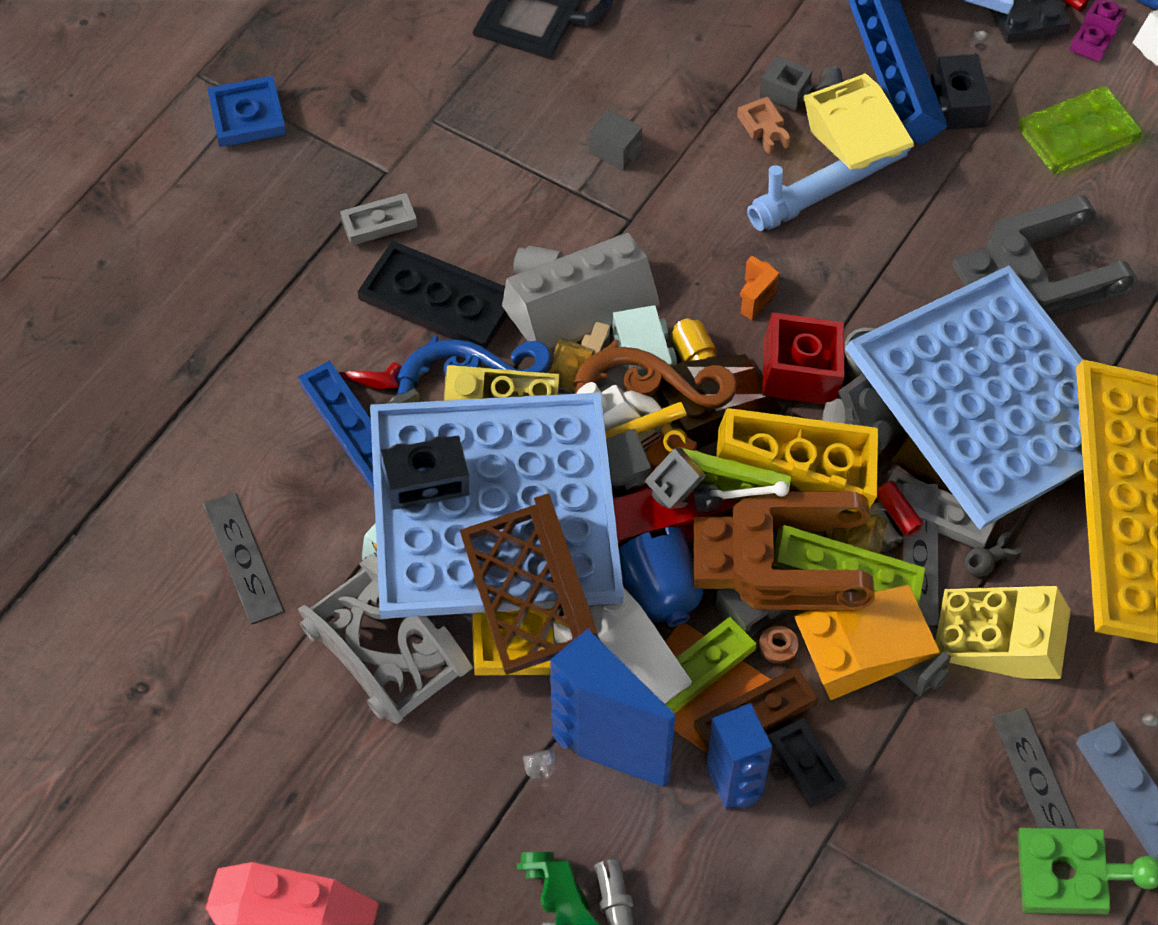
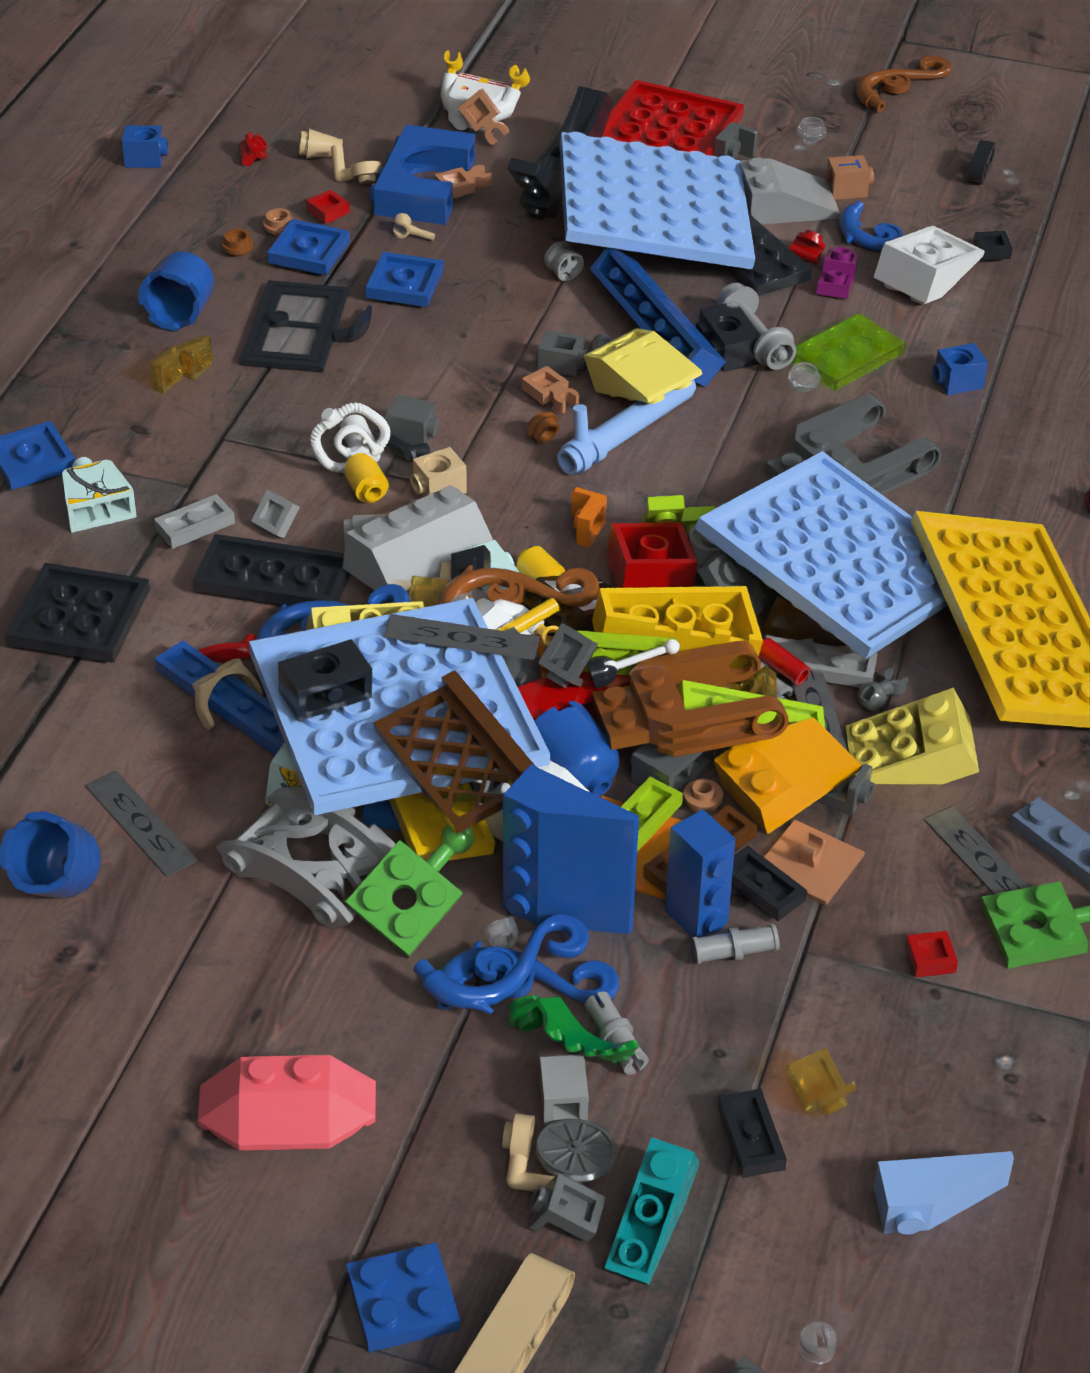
camera: 15 degrees left, 15 degrees down
(137, 595) = (50, 856): none -> blue cylinder
(243, 305) = (78, 612): none -> black plate
(292, 170) = (96, 494): none -> light aqua torso
(334, 420) = (205, 685): none -> tan cap
(419, 24) = (184, 360): none -> clear yellow slope
(456, 226) = (275, 513): none -> light grey plate
(482, 709) = (408, 870): none -> bright green plate
(522, 796) = (491, 959): none -> blue plant
(539, 825) = (463, 964): none -> blue plant
(554, 199) = (365, 478): none -> yellow brick
(560, 150) = (353, 430): none -> white piece
(577, 438) = (462, 636): none -> flat silver sticker
(600, 169) = (403, 449): none -> black bar
(623, 329) = (478, 557): none -> black plate
(625, 211) = (438, 471): none -> tan brick
(744, 170) = (543, 427): none -> dark orange plate
(760, 827) = (735, 943): none -> light grey pin
(839, 308) = (672, 509): none -> lime plate
(864, 743) = (814, 860): none -> nougat piece
(948, 884) = (931, 954): none -> red plate
(1003, 115) = (774, 346): none -> light grey piece
(1024, 155) = (803, 377): none -> clear plate

